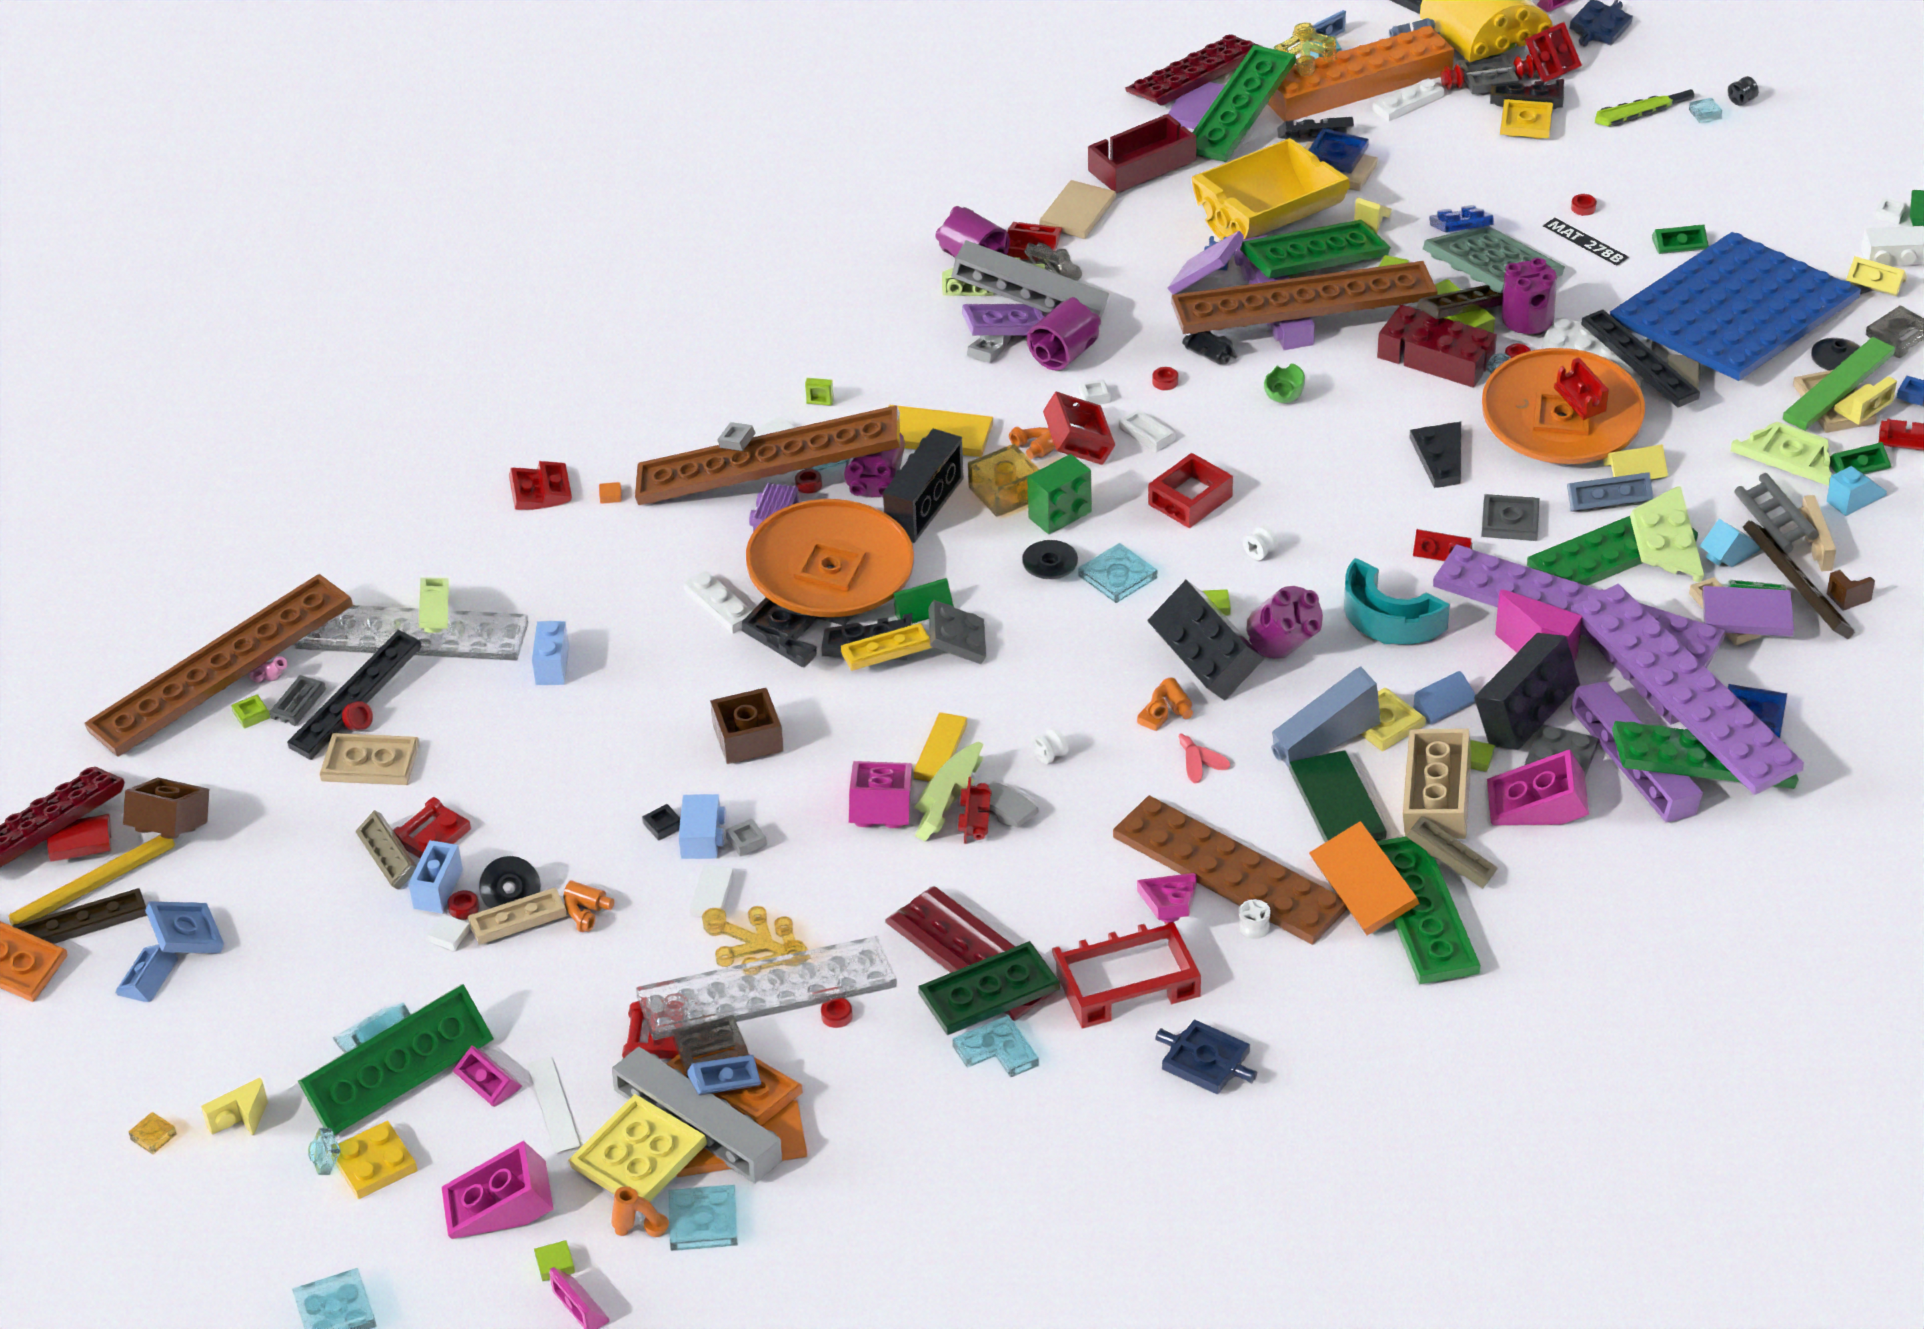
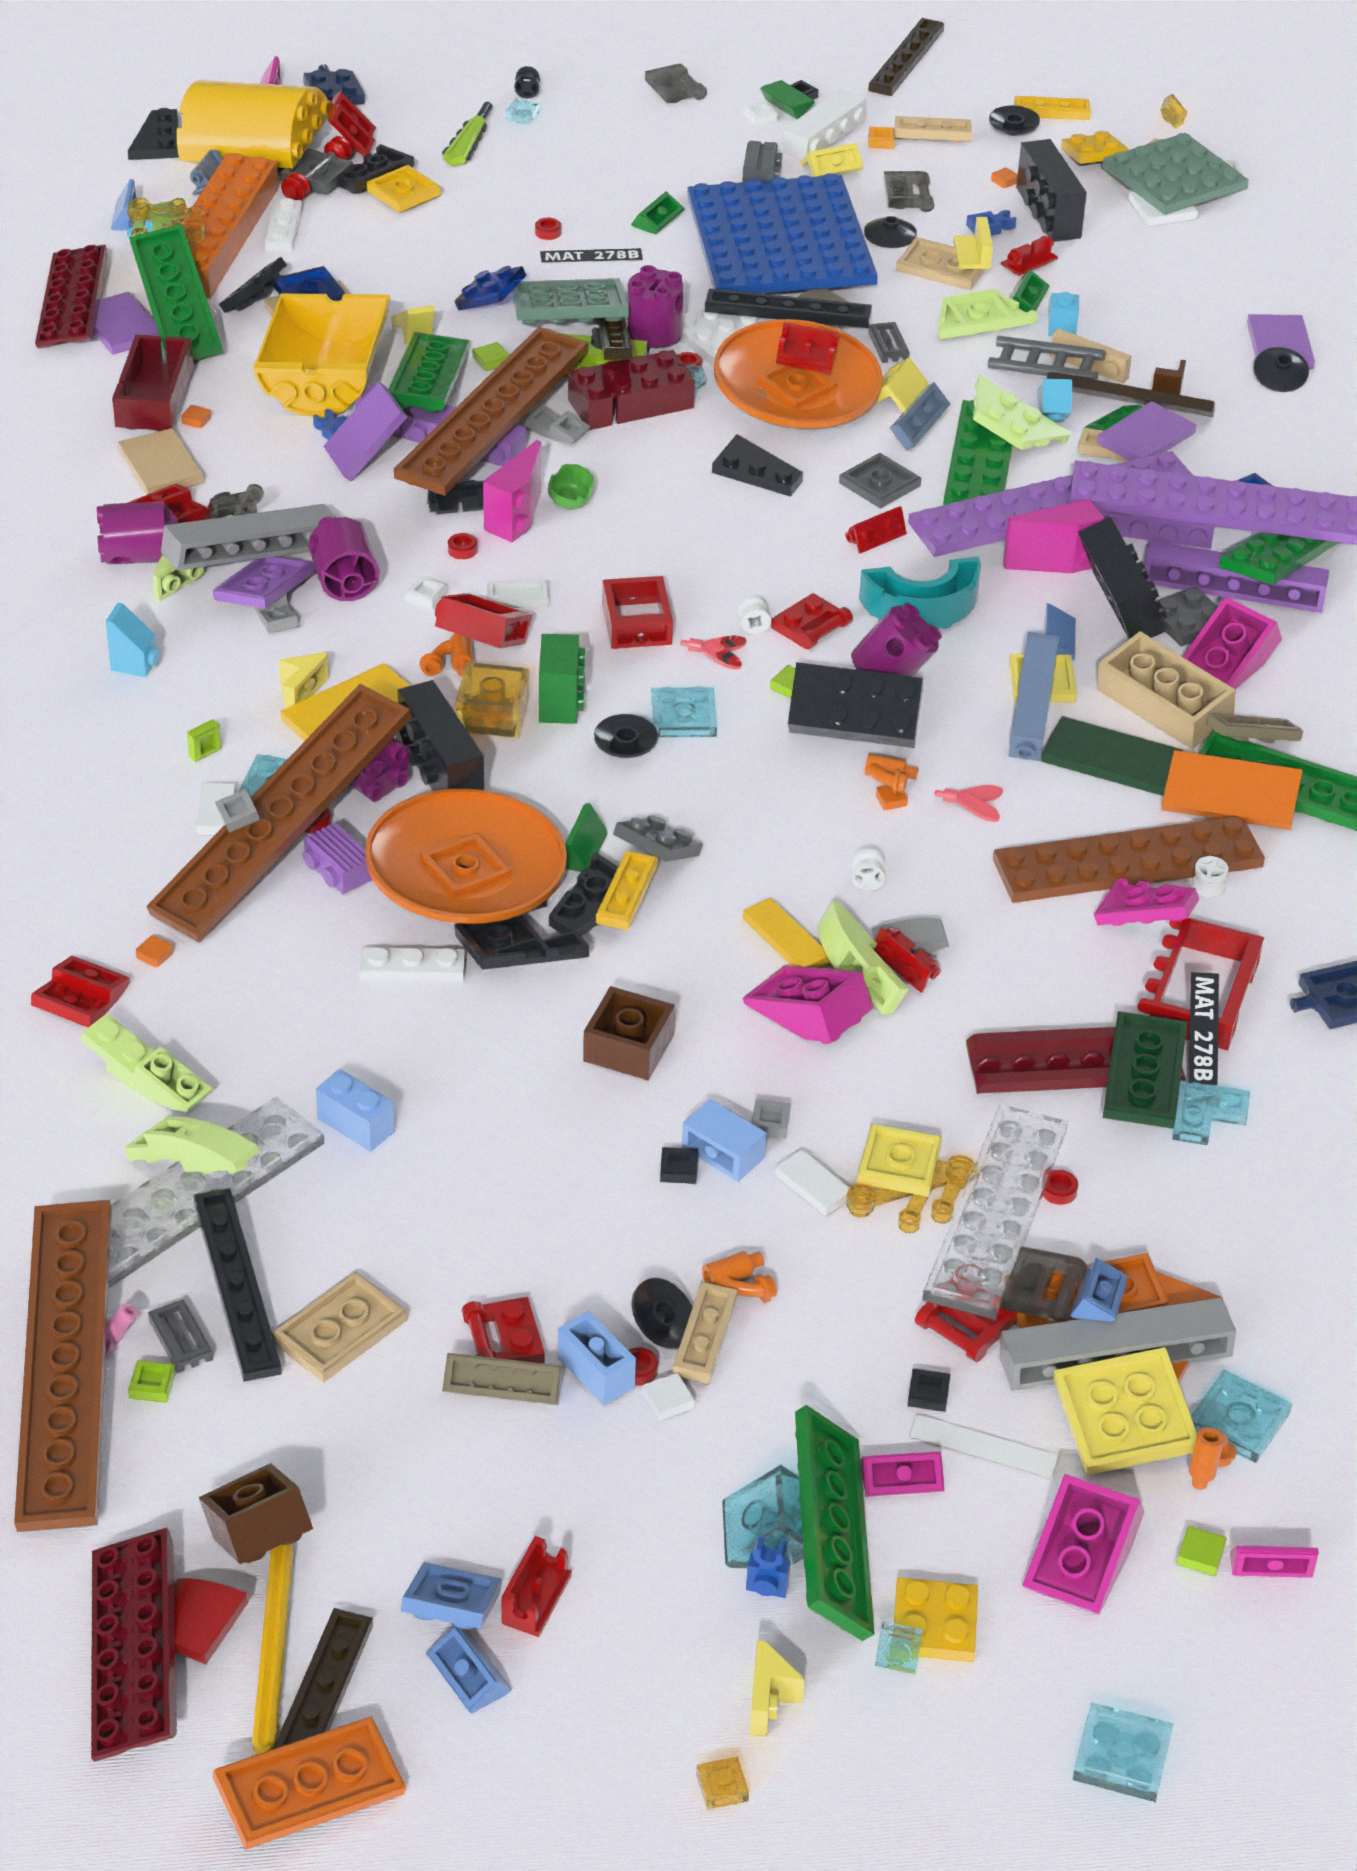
camera: 55 degrees left, 0 degrees up
(228, 960) = (535, 1588): none -> red hinge
(327, 1045) = (768, 1570): none -> blue plate
(357, 716) = (273, 1298): red tile -> none
(497, 546) = (144, 1070): none -> yellowish green slope
(574, 1049) = (928, 1390): none -> black tile
(769, 917) = (899, 1160): none -> light yellow tile
(866, 303) = (130, 643): none -> medium azure slope
(934, 394) = (302, 676): none -> light yellow slope
(1062, 994) = (1204, 1028): none -> black sticker
(1147, 193) = (196, 416): none -> orange piece
(1208, 547) = (719, 649): none -> piece
(1237, 361) = (513, 494): none -> dark pink slope
(1296, 570) = (810, 620): none -> red plate
(1355, 338) = (561, 428): none -> light grey slope
(1693, 431) = (890, 352): none -> dark grey tile
(1814, 245) = (762, 161): none -> dark grey brick
(1838, 383) = (937, 247): bright green tile -> none
(1851, 147) = (674, 83): none -> clear smoke plate

